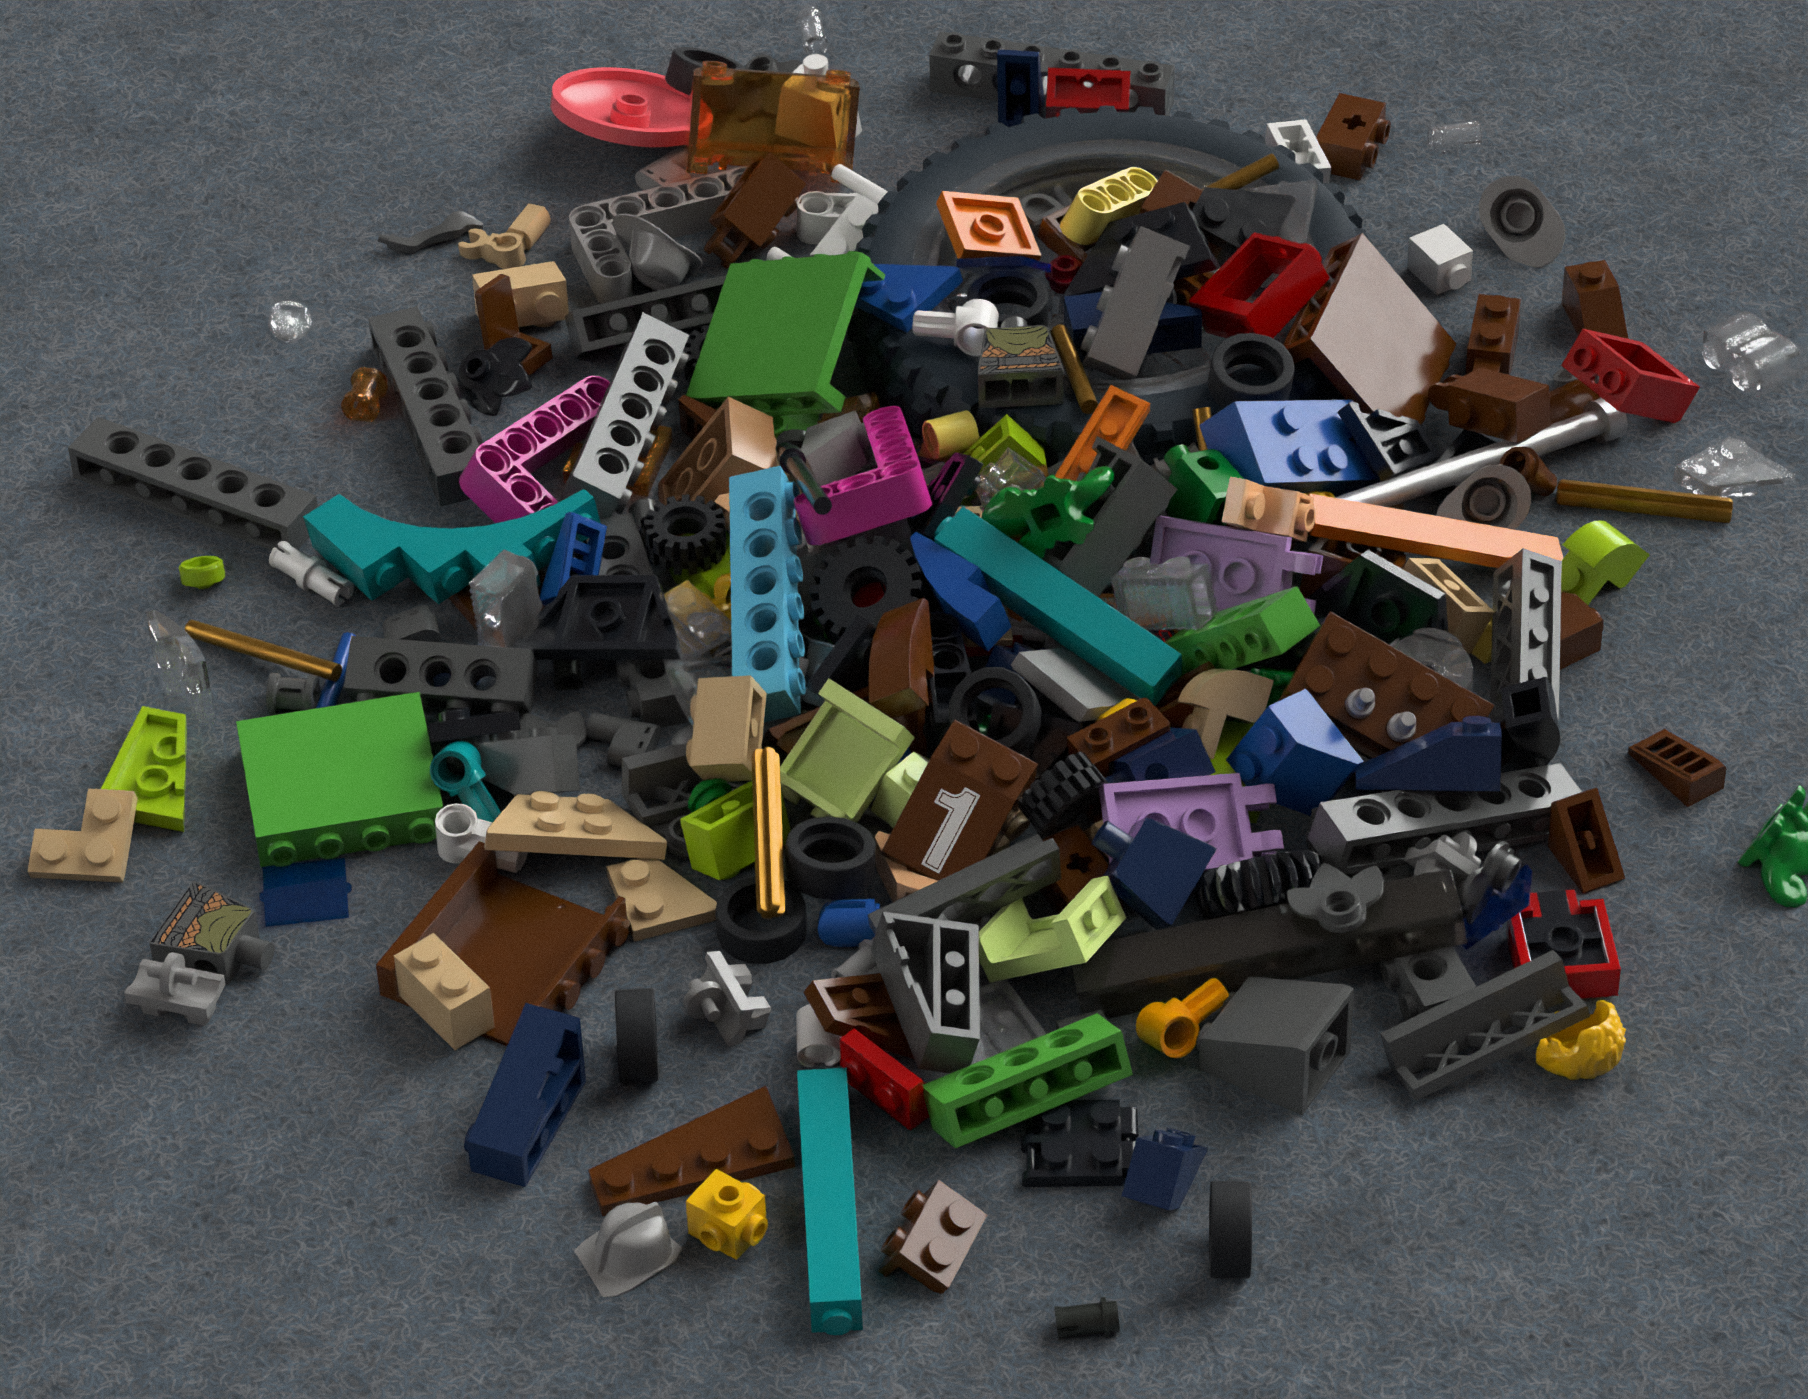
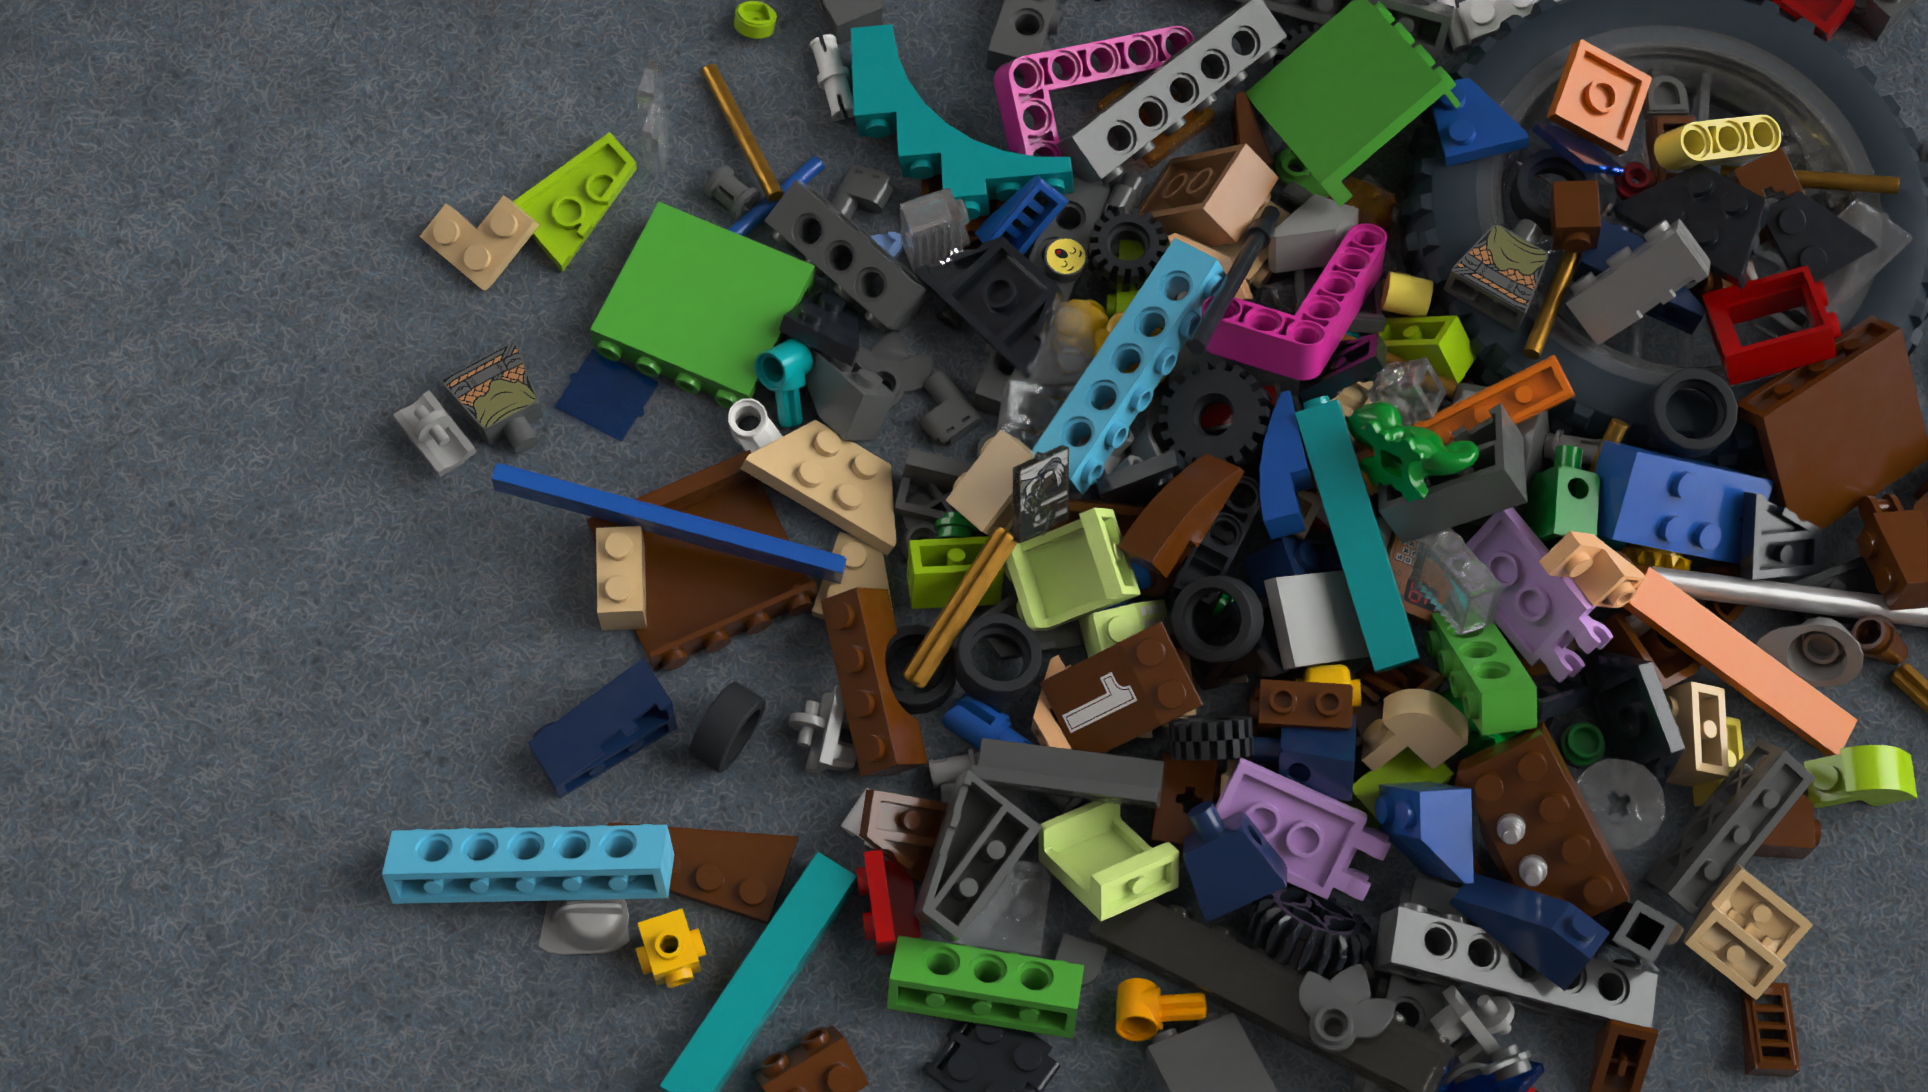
camera: 30 degrees right, 25 degrees up
(456, 917) = (668, 523): none -> blue tile
(548, 1220) = (529, 864): none -> medium azure brick
(638, 563) = (1065, 259): none -> tile
(734, 932) = (881, 730): none -> reddish brown arch
(771, 705) = (1040, 493): none -> piece
(959, 324) = (1495, 201): white axle -> none
(1042, 295) = (1575, 215): none -> reddish brown brick
(1602, 700) = (1746, 931): none -> tan slope

